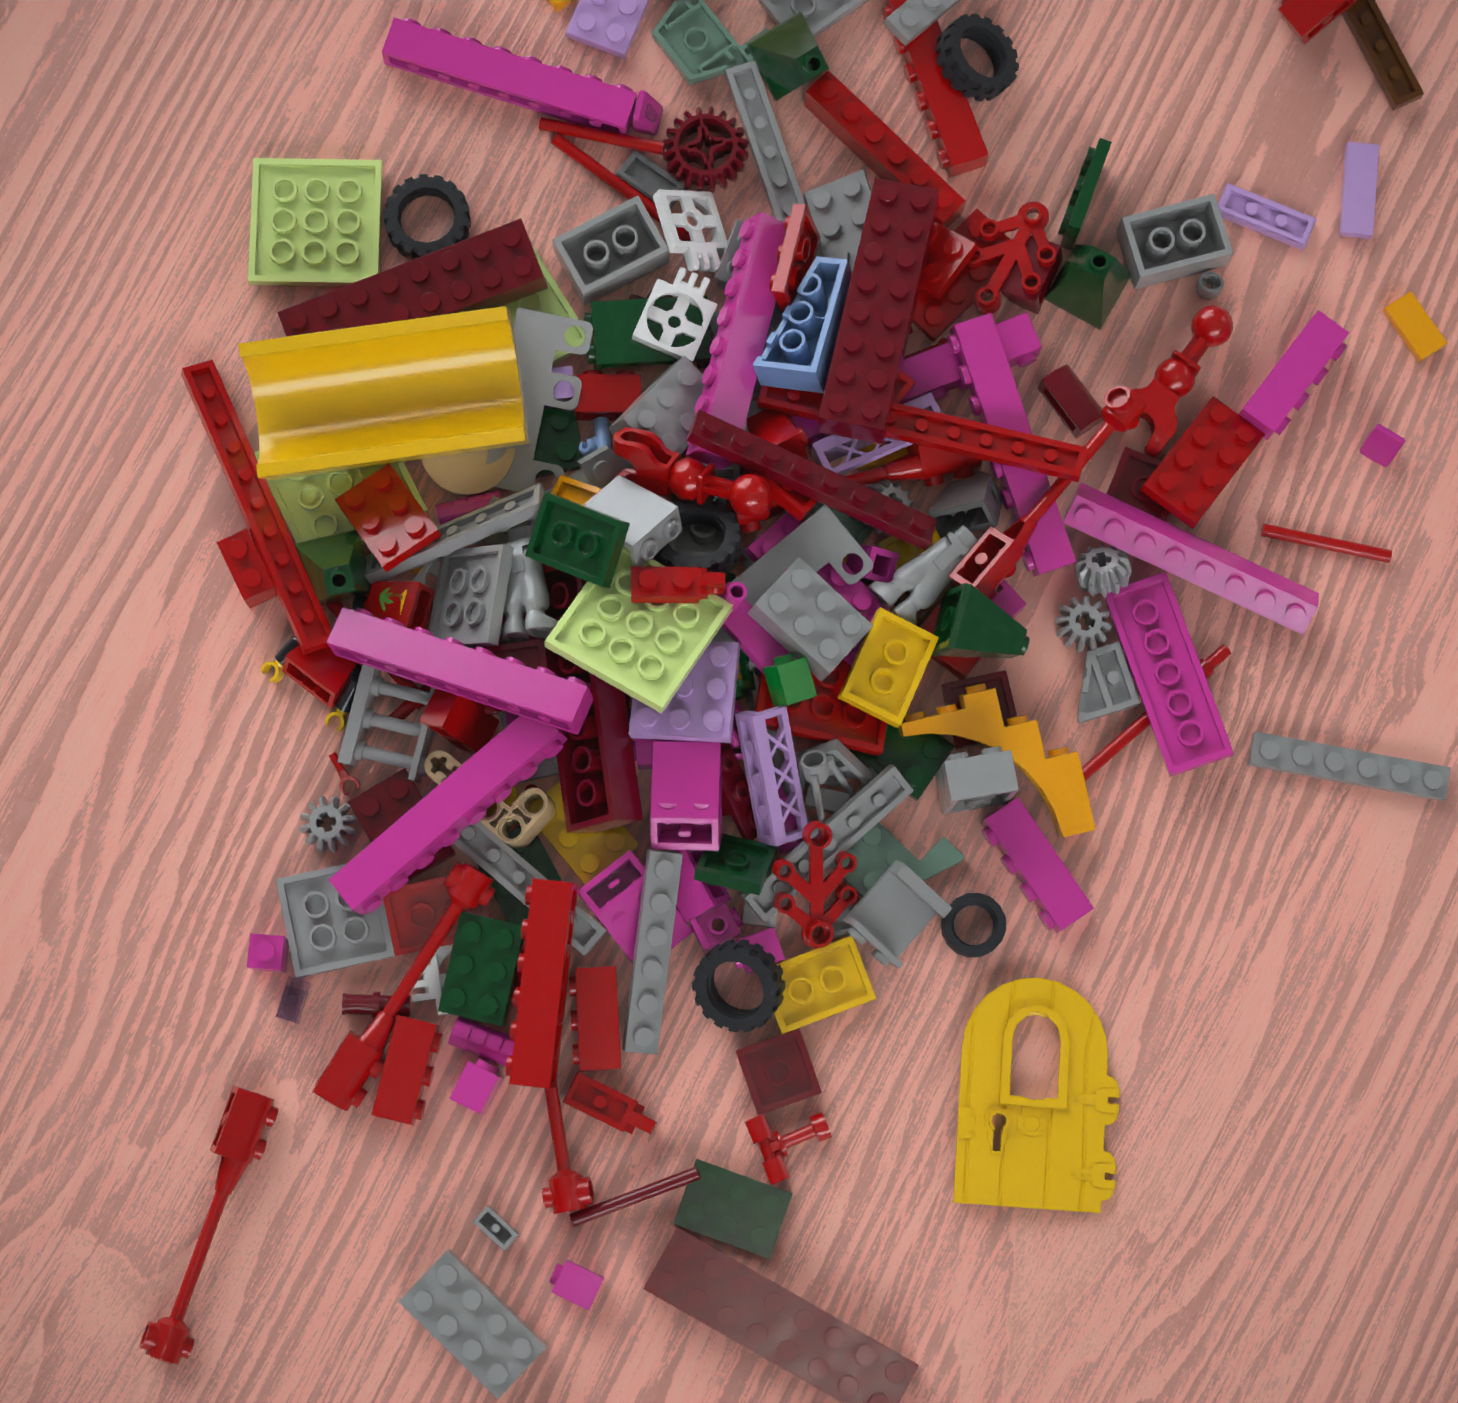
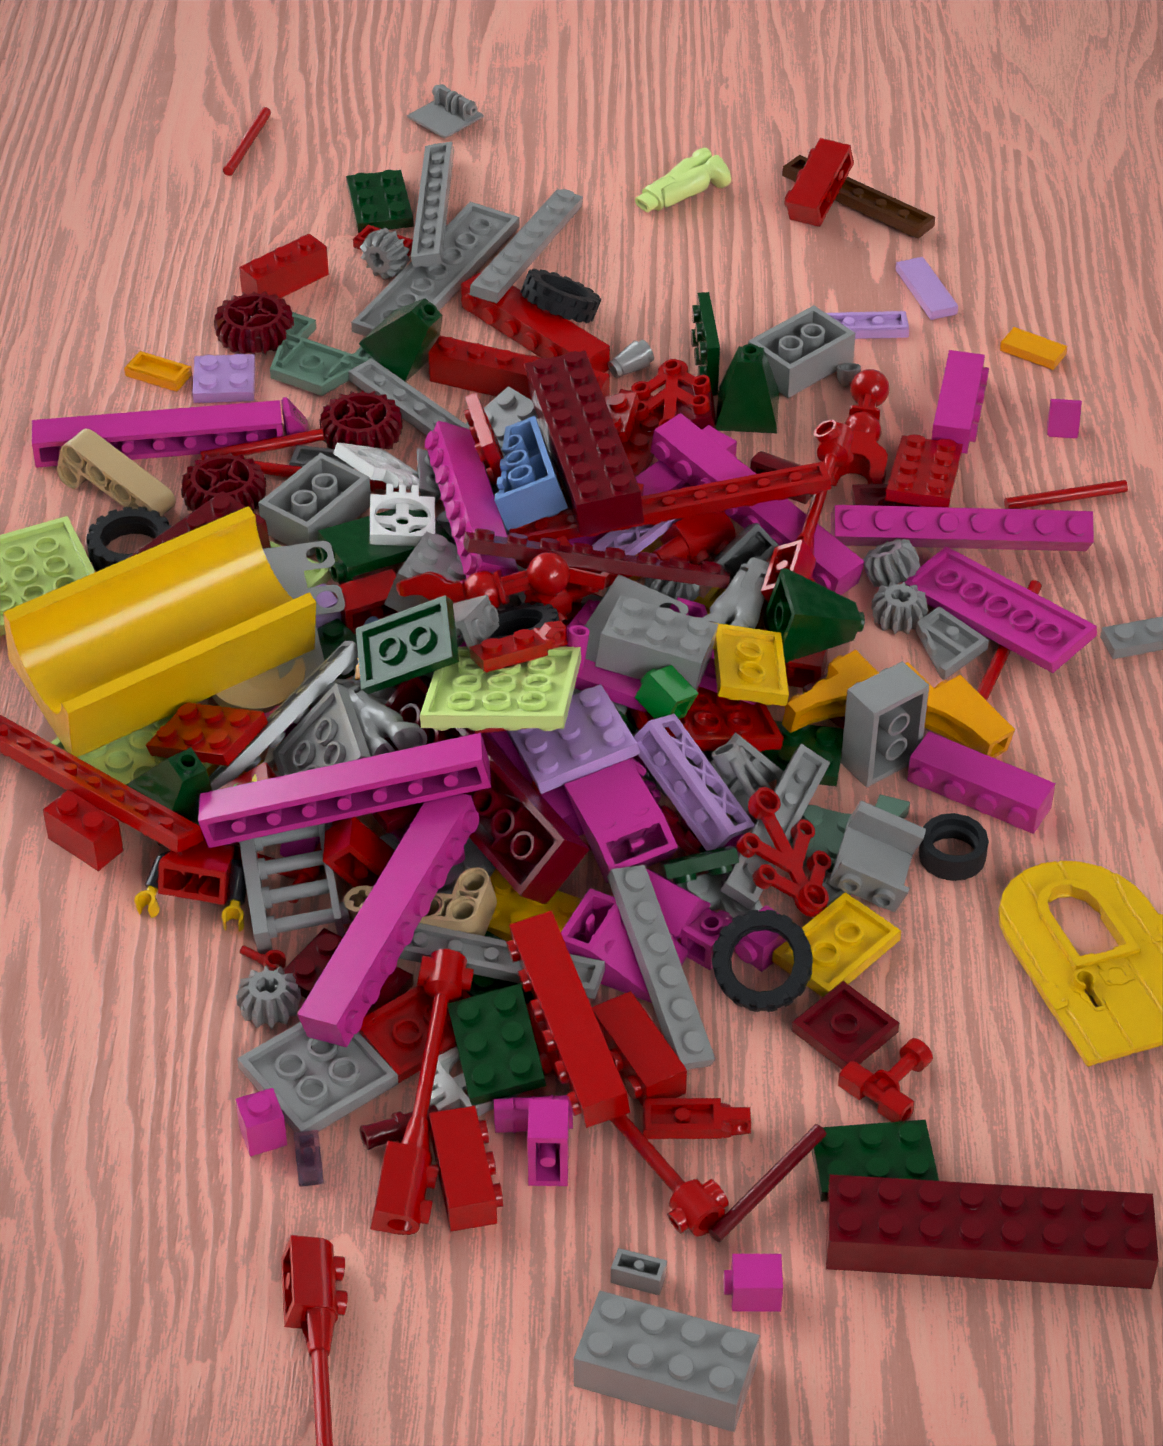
camera: 20 degrees left, 35 degrees down
(444, 131) = (113, 472): none -> tan beam
(558, 164) = (225, 473): none -> dark red gear
(1008, 170) = (631, 359): none -> light grey cone

